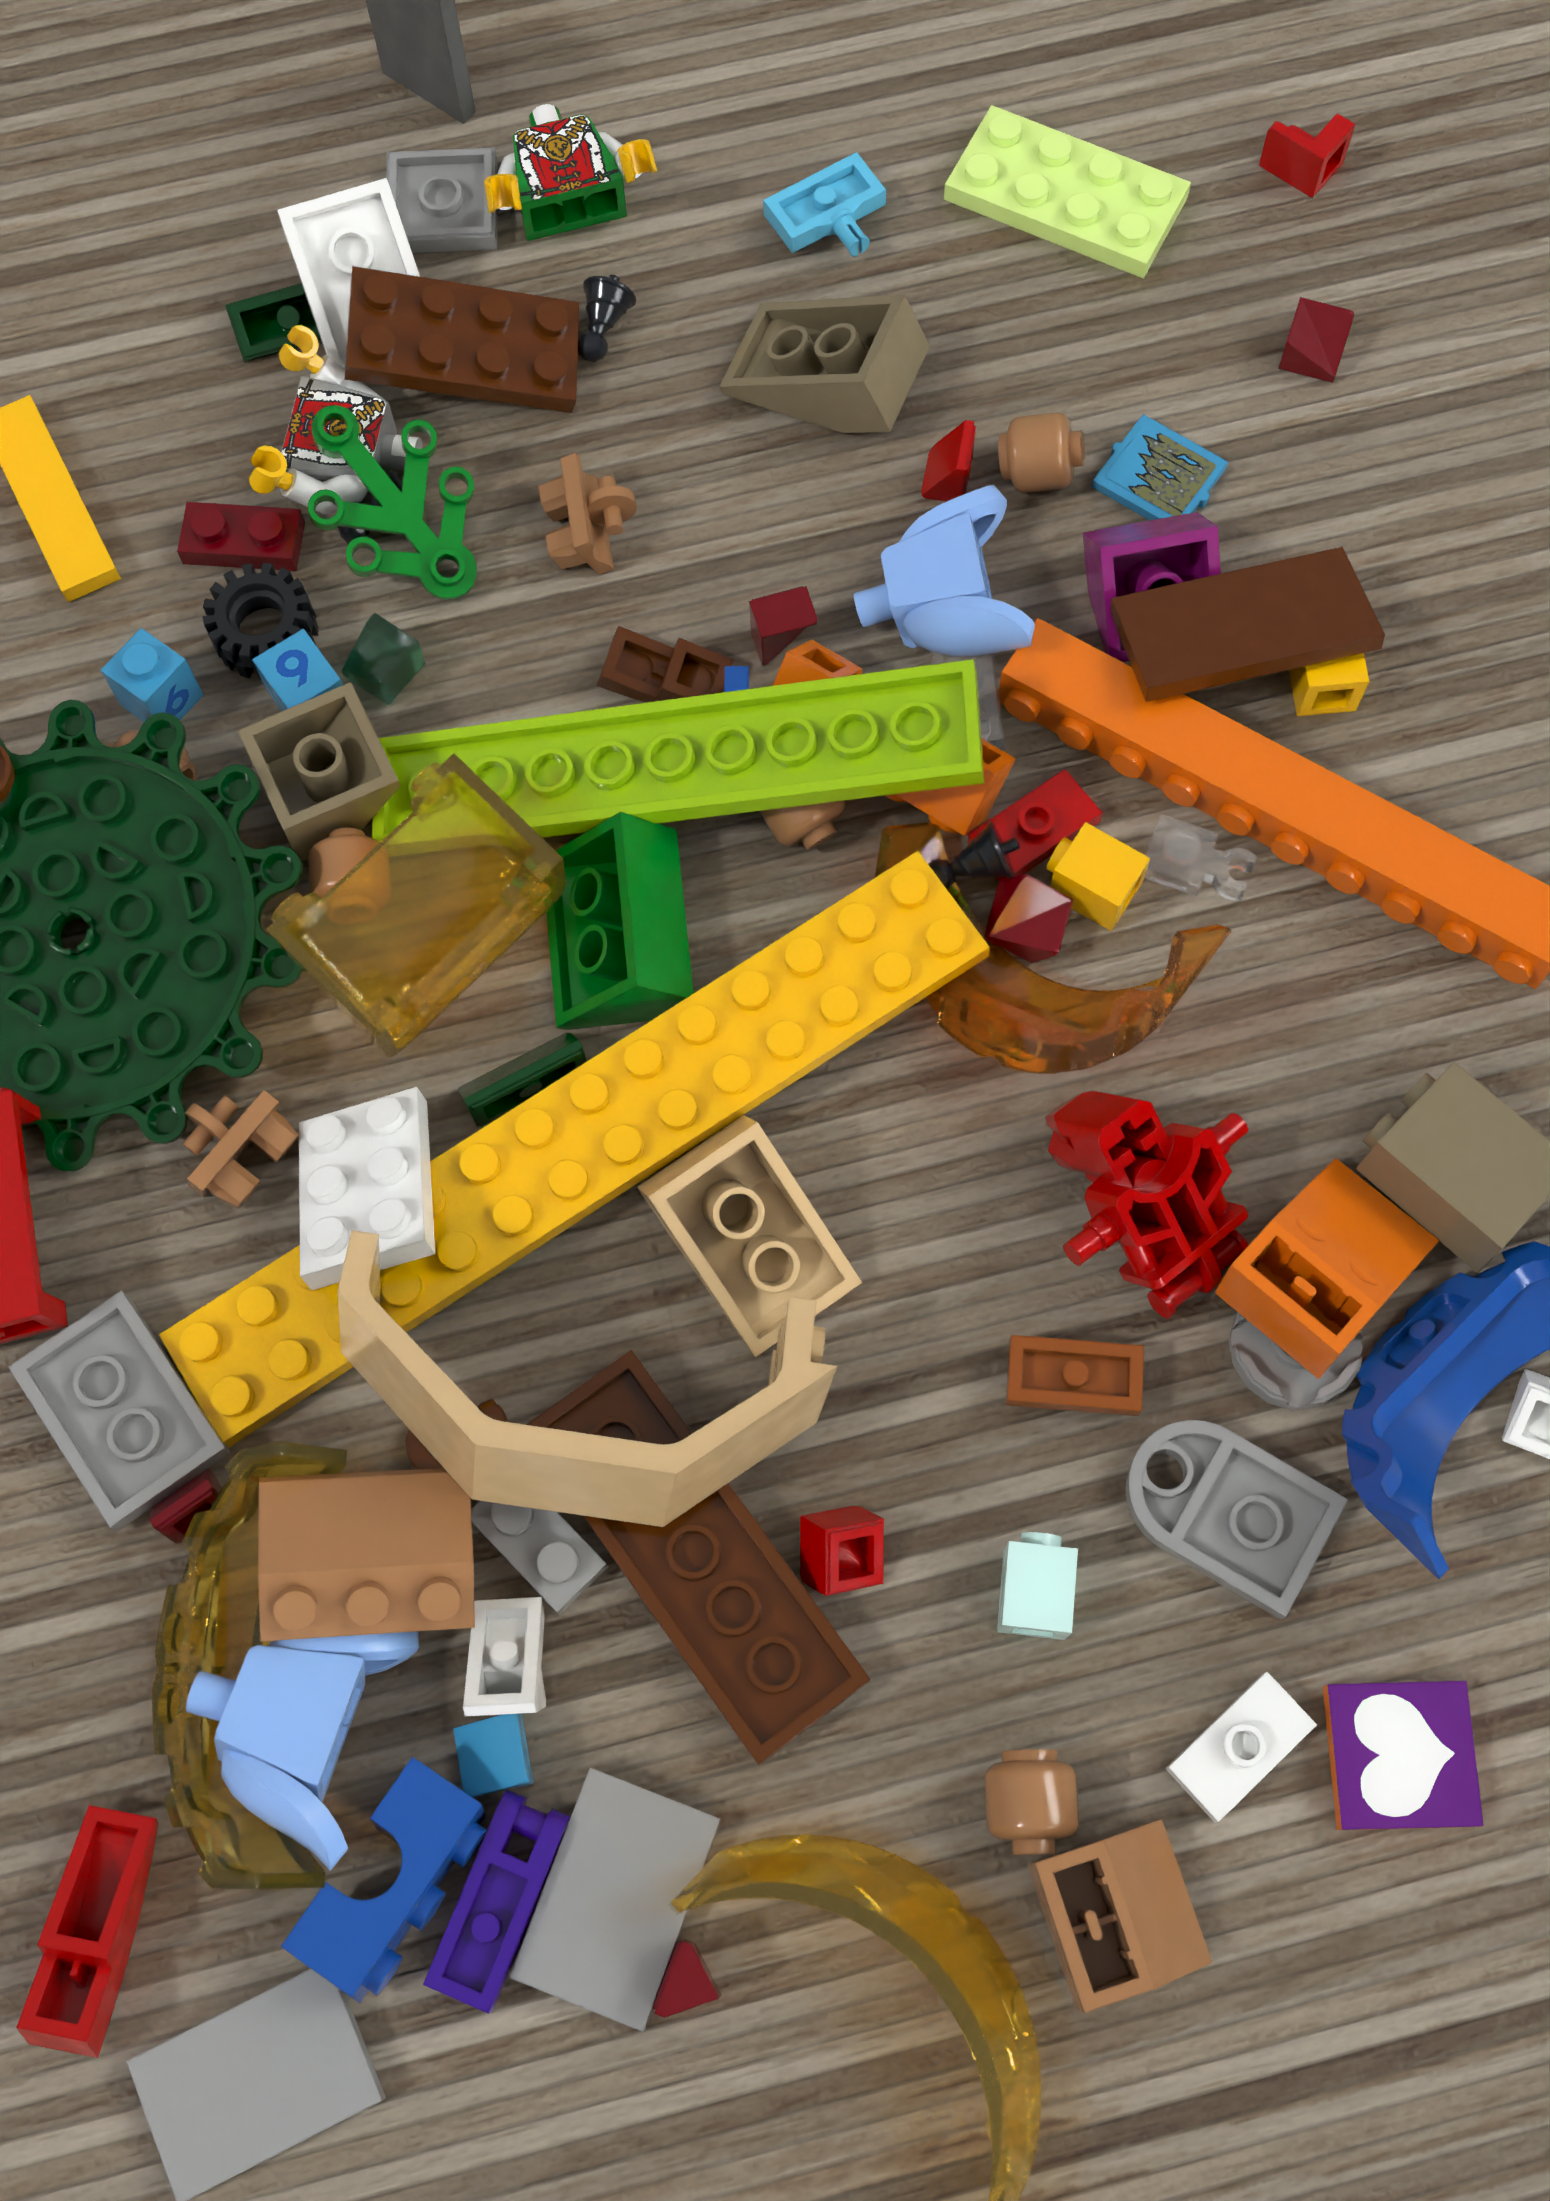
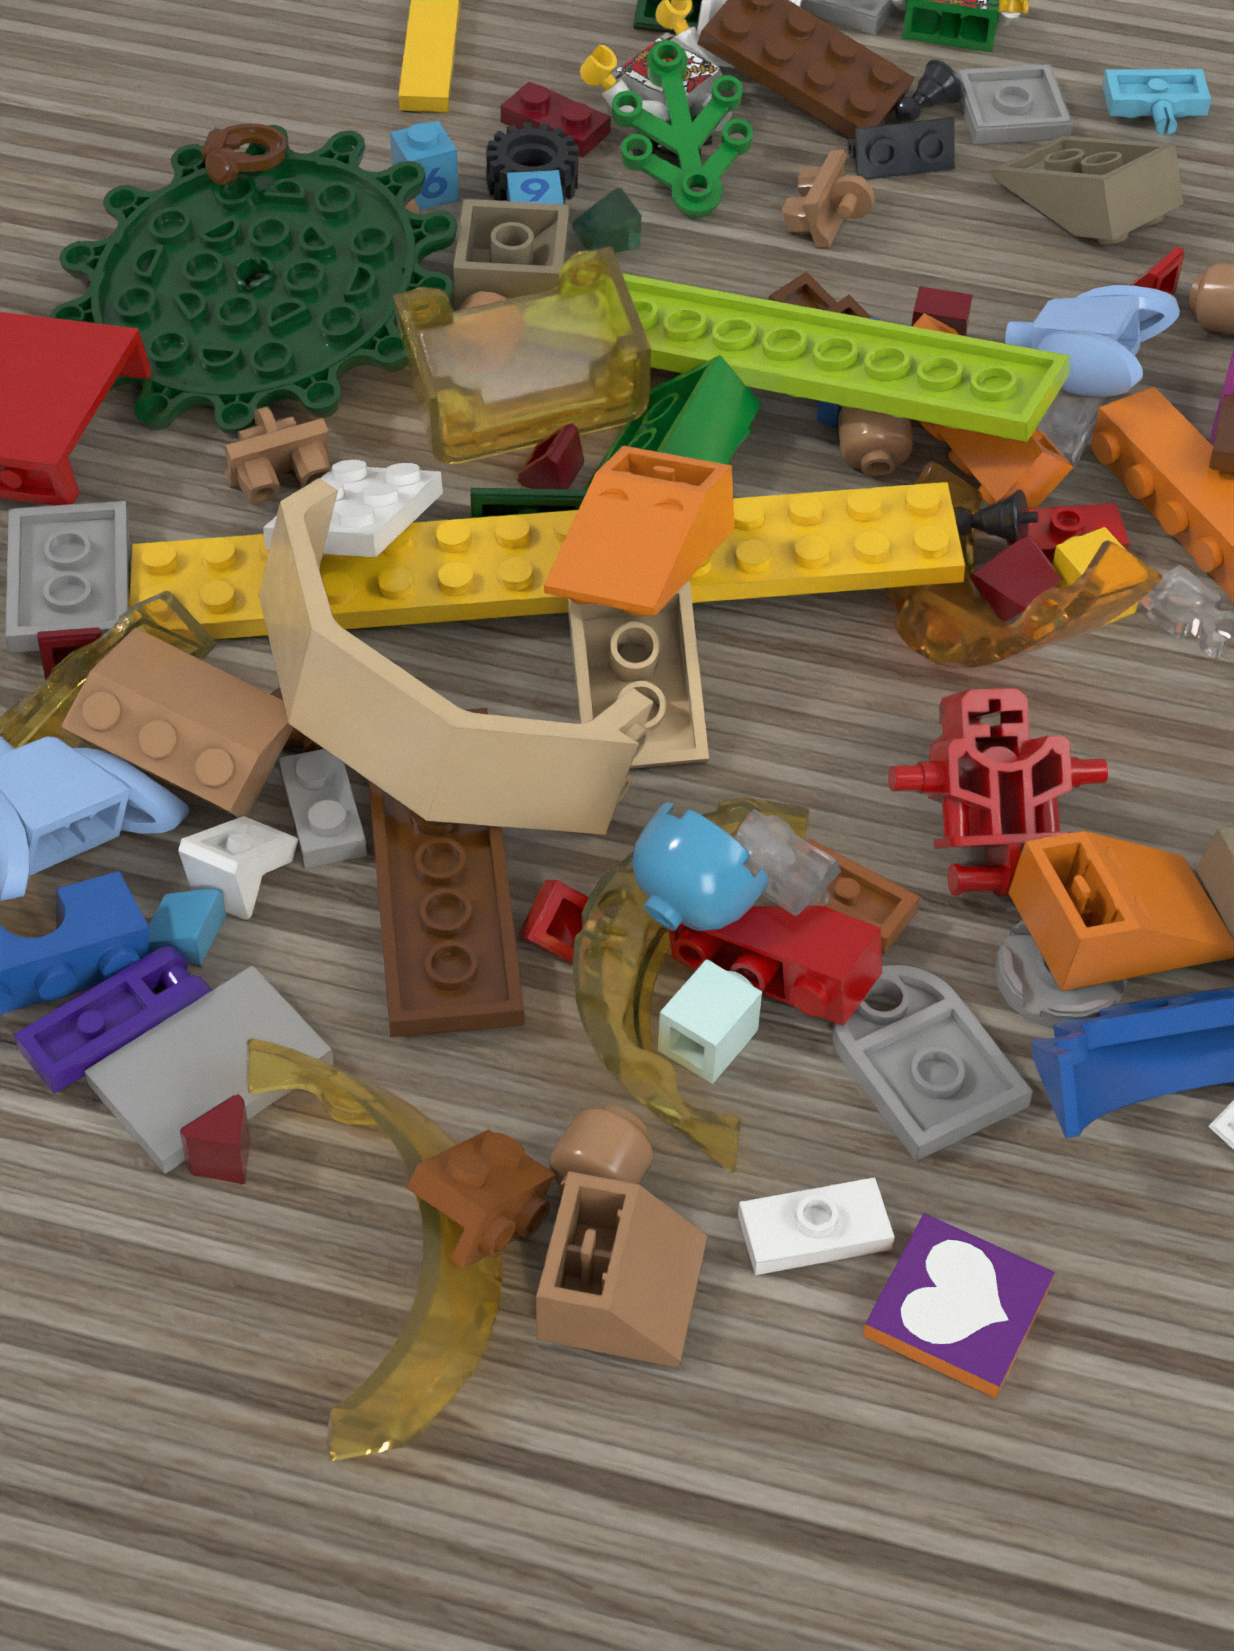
camera: 25 degrees right, 20 degrees down
(507, 1000) = (554, 460): none -> dark red slope
(620, 406) = (903, 148): none -> black hinge
(690, 284) = (1013, 104): none -> light grey tile
(690, 1104) = (643, 530): none -> orange slope
(918, 1566) = (615, 981): none -> clear yellow windscreen
(964, 1480) = (693, 872): none -> dark azure cylinder
(966, 1917) = (487, 1190): none -> dark orange bracket
(1017, 1406) = (794, 867): none -> clear hips
(1078, 1481) = (808, 960): none -> red slope

